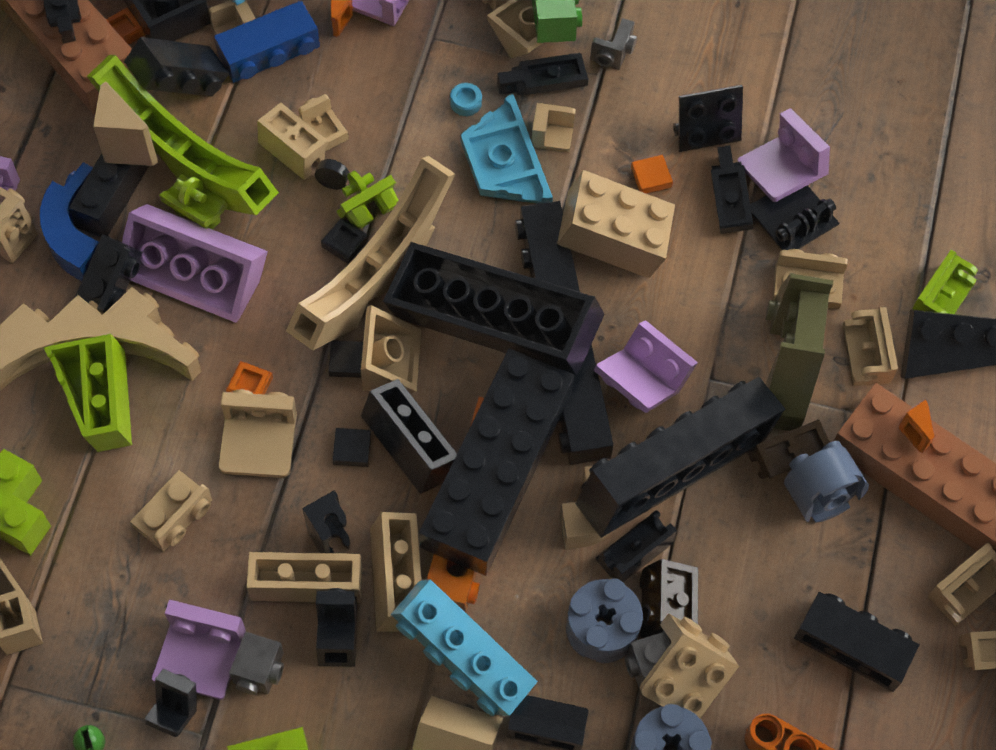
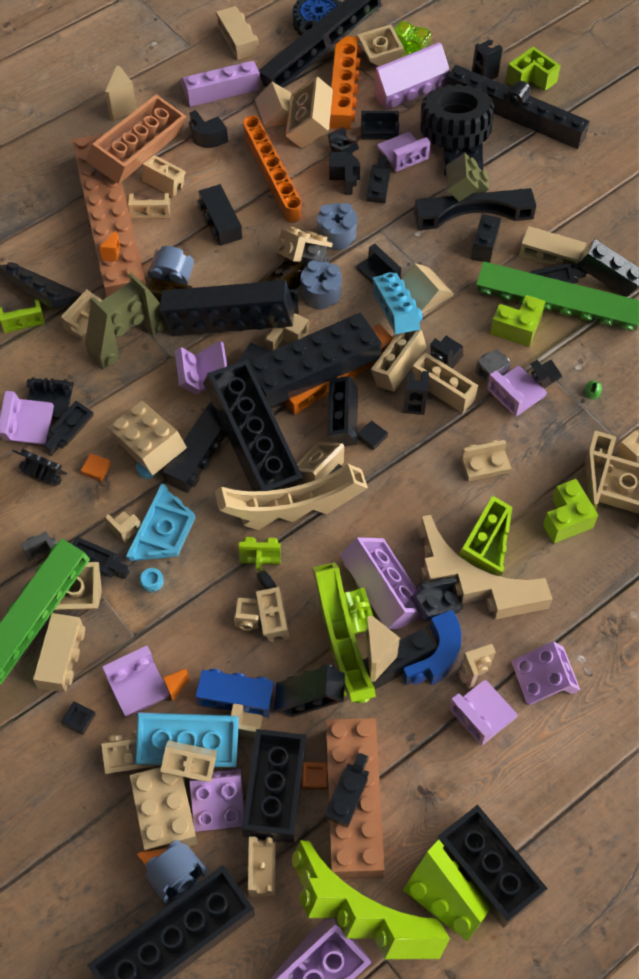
camera: 140 degrees left, 5 degrees down
(250, 378) = (400, 500): orange tile -> none
(257, 434) = (417, 466): tan bracket -> none
(344, 240) = (290, 543): black tile -> none
(814, 265) = (77, 363): tan bracket -> none

